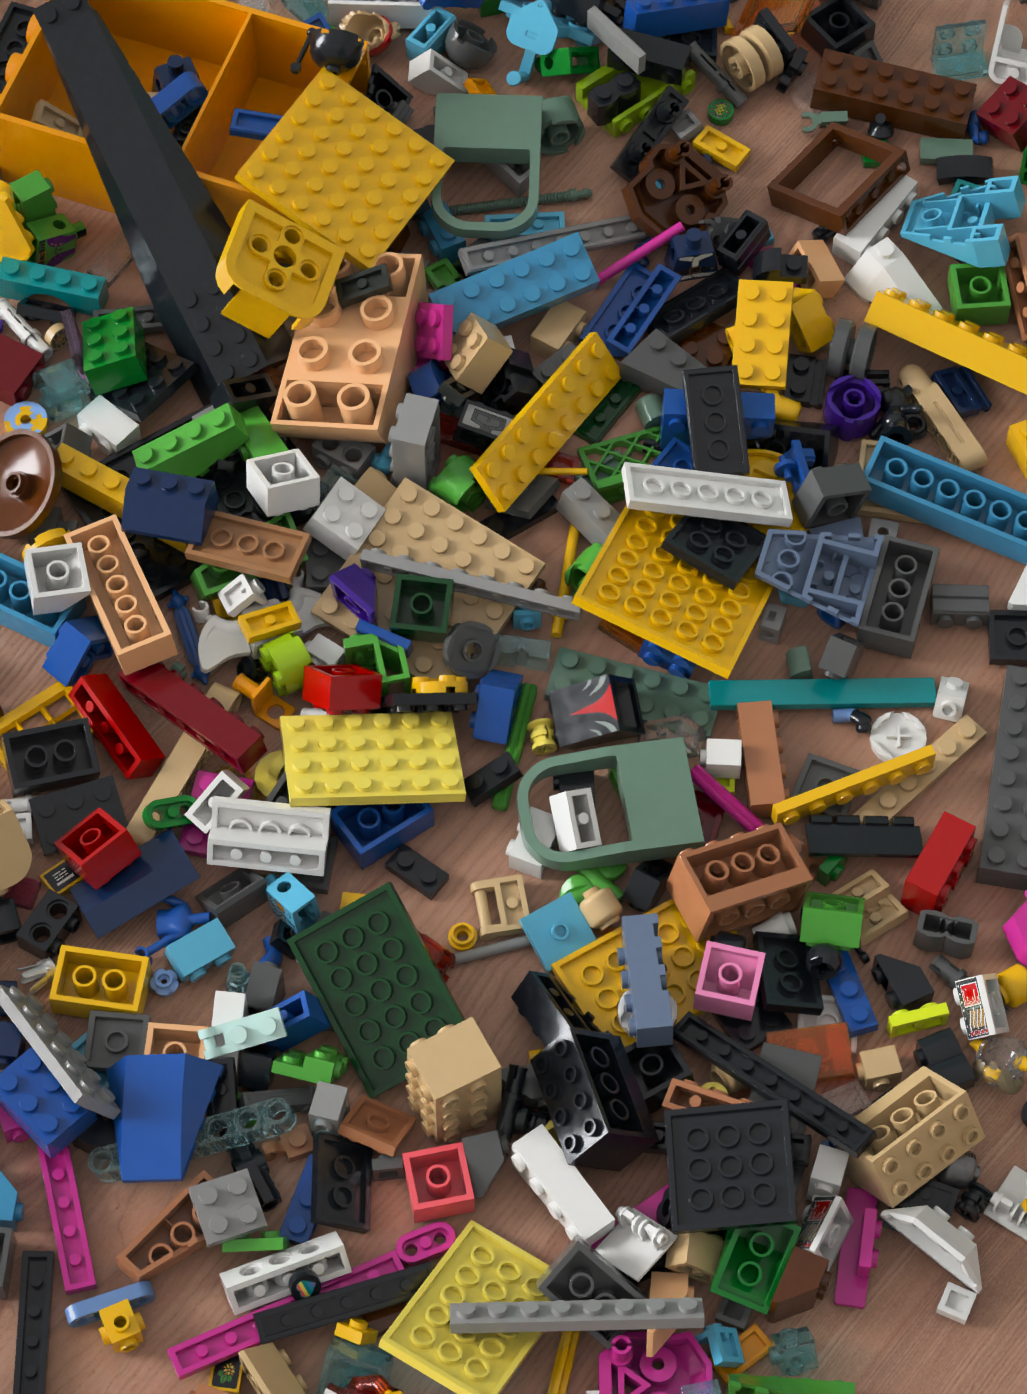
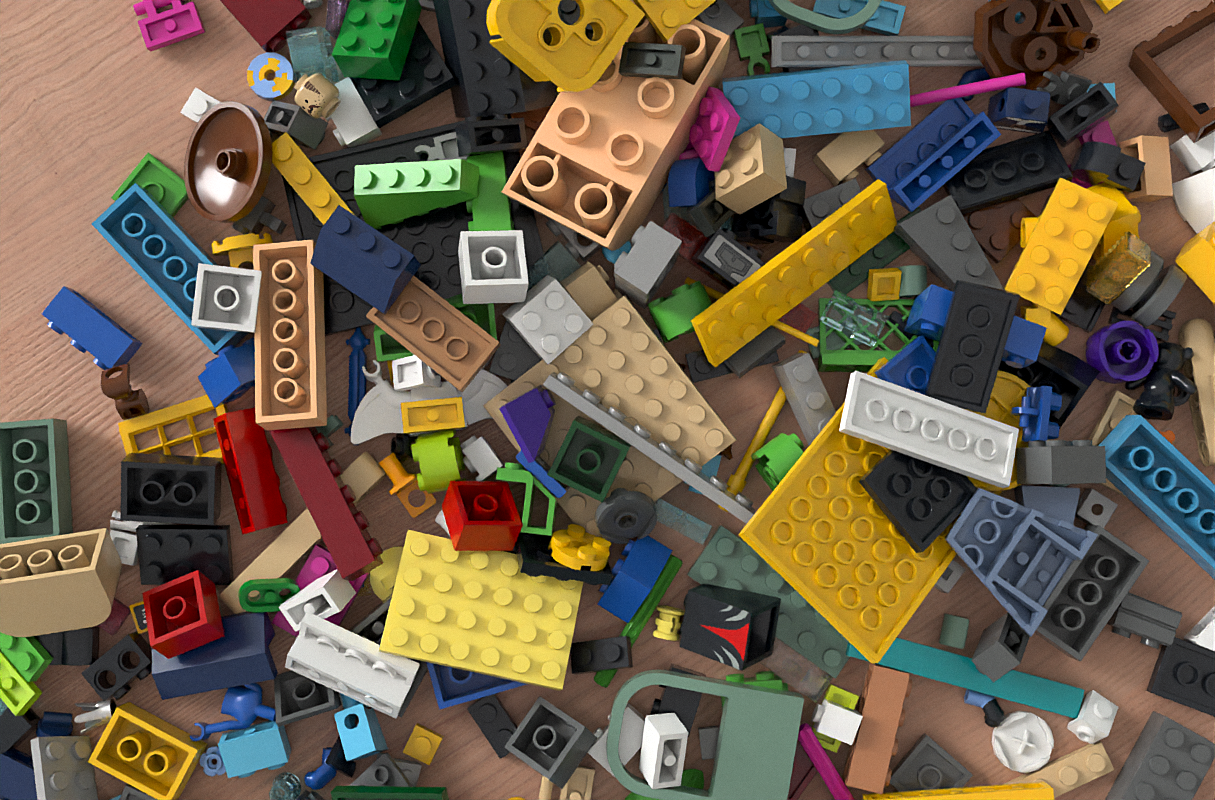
camera: 25 degrees right, 25 degrees up
(79, 409) = (317, 95): none -> tan head
(472, 853) = (550, 742): none -> dark grey brick
(609, 449) = (854, 317): none -> clear light blue piece
(616, 824) = (708, 741): none -> light grey tile
(628, 419) = (884, 284): none -> yellow plate
(818, 338) = (1118, 268): none -> clear yellow brick

